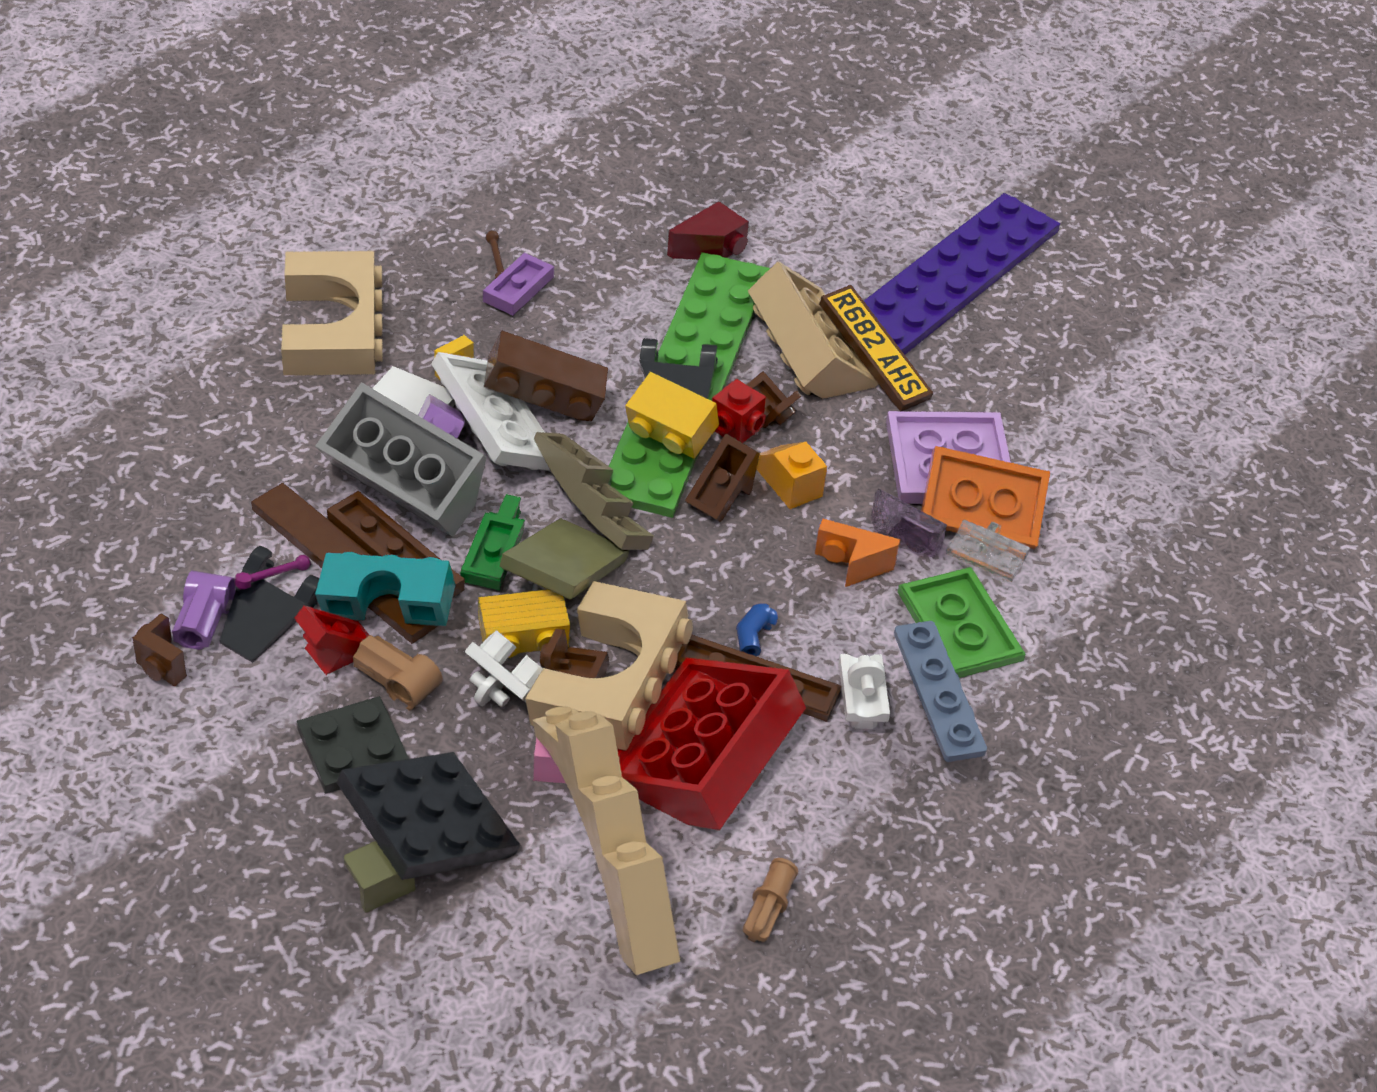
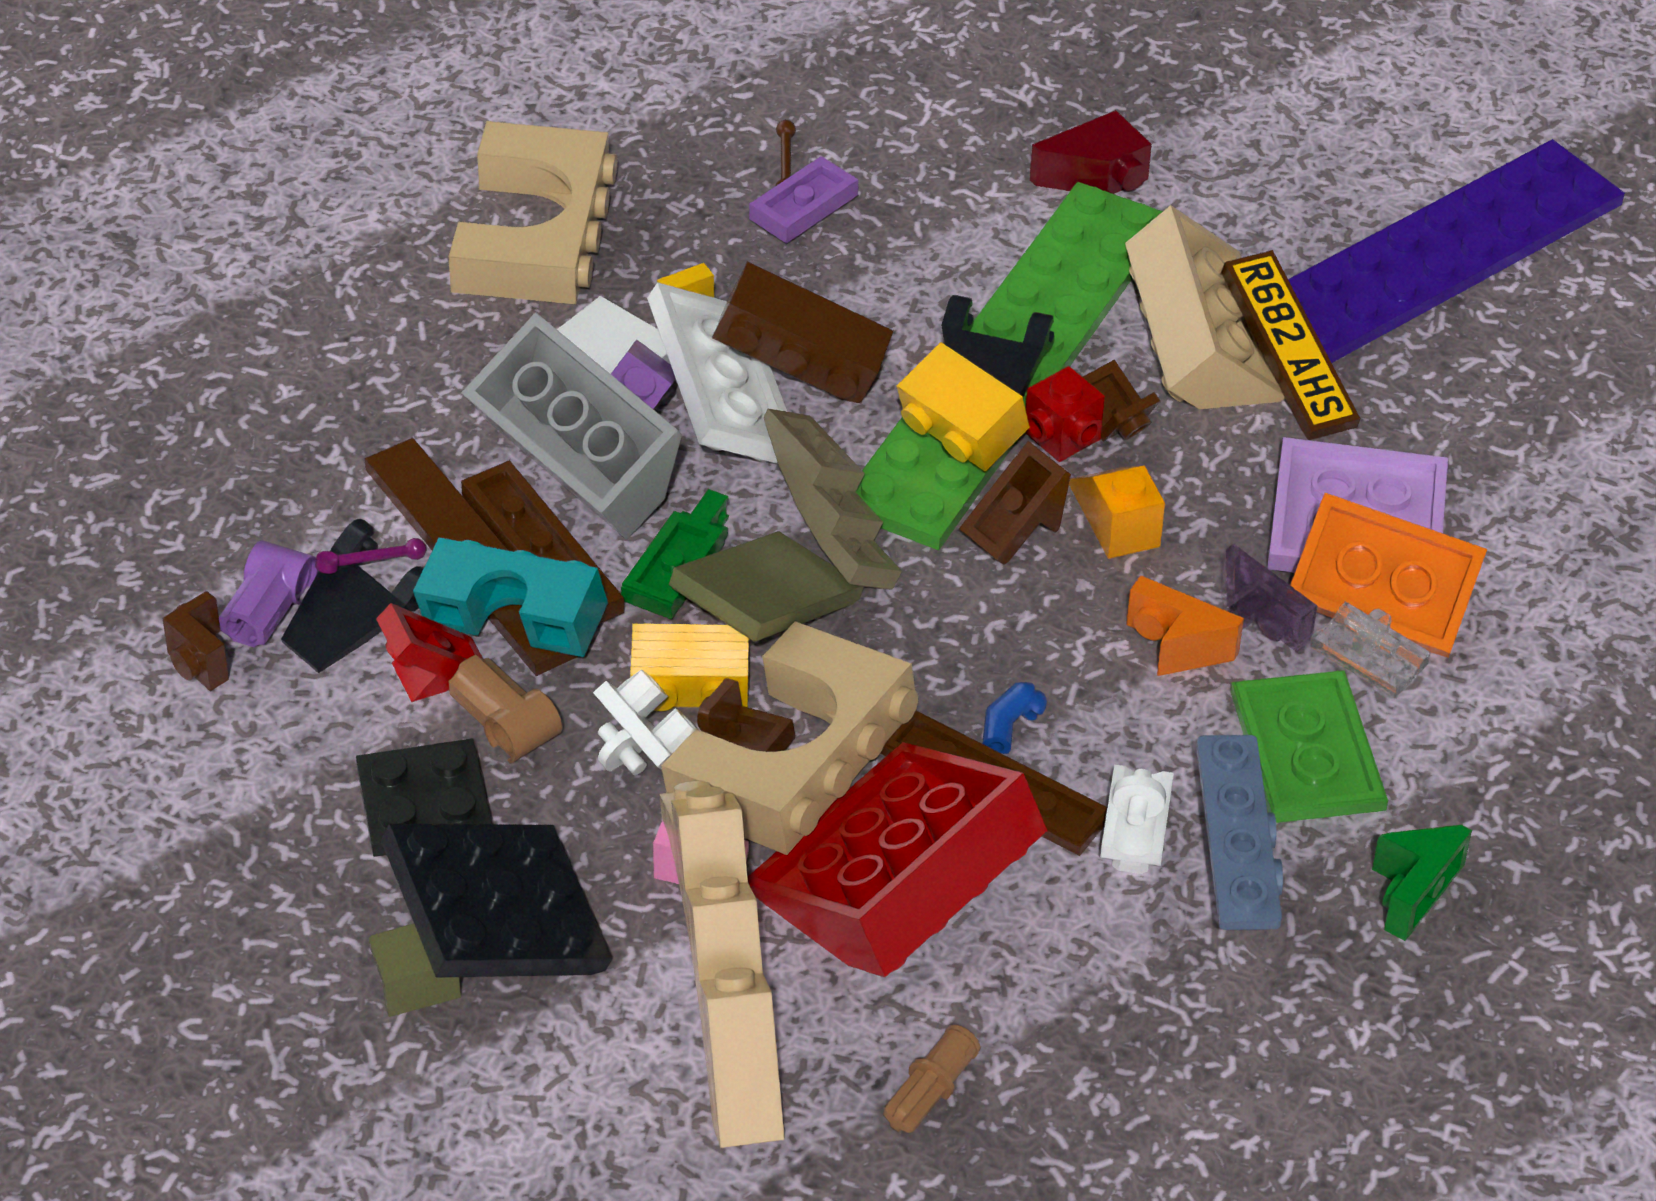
camera: 15 degrees right, 0 degrees up
(1062, 697) = (1420, 870): none -> green slope

